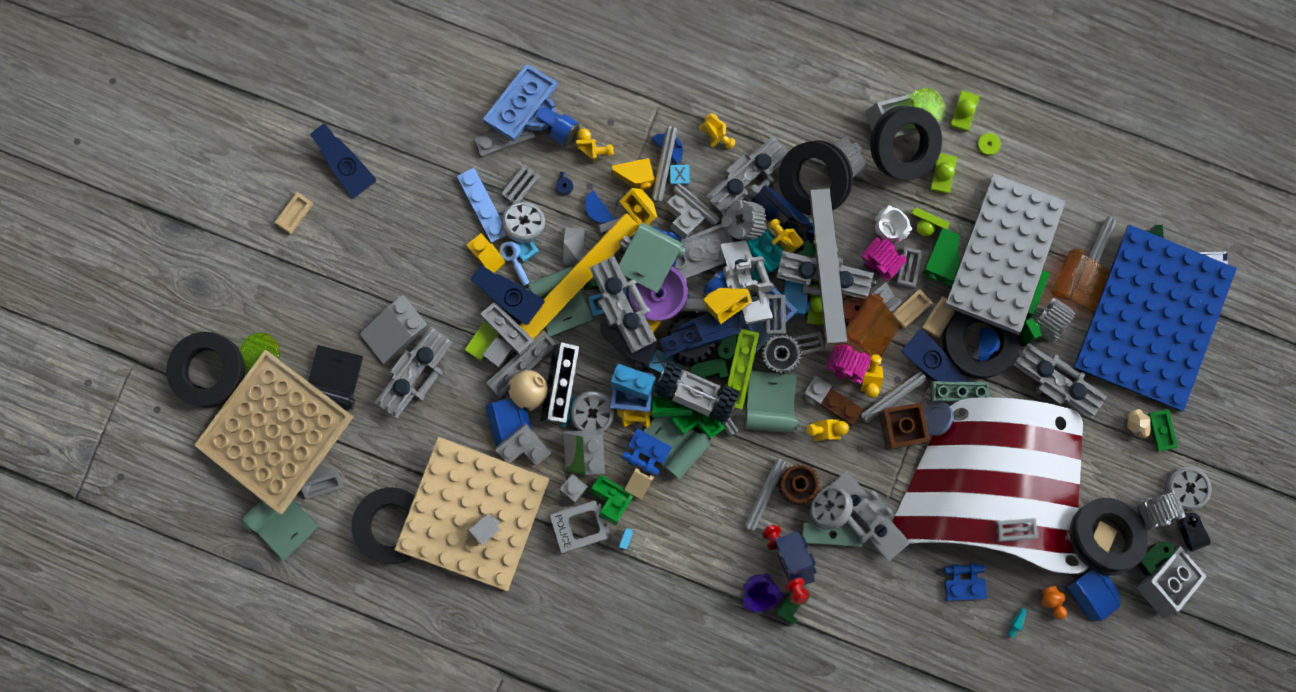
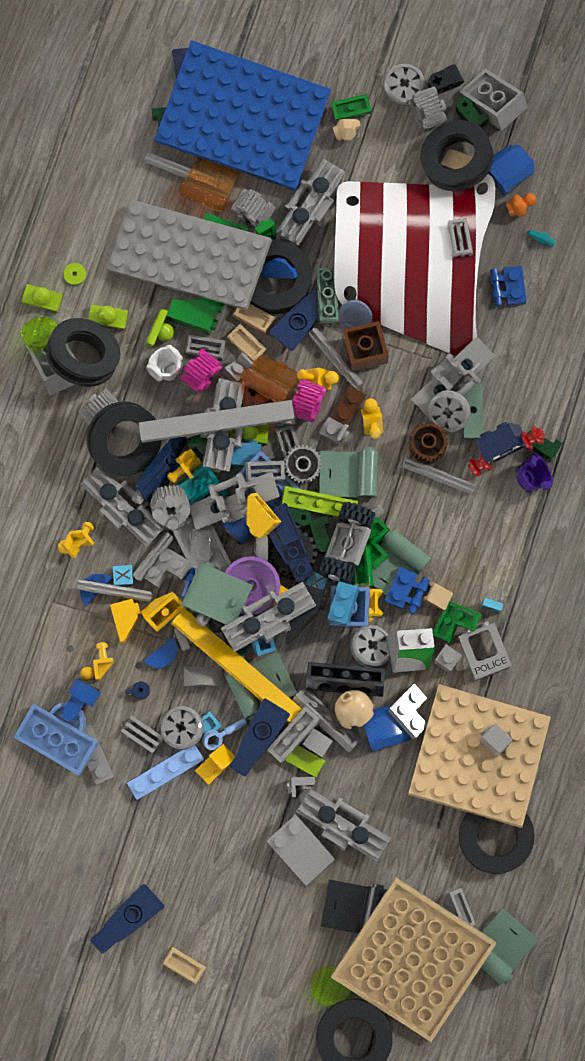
camera: 90 degrees left, 0 degrees up
(459, 337) = (303, 783): none -> light grey bracket

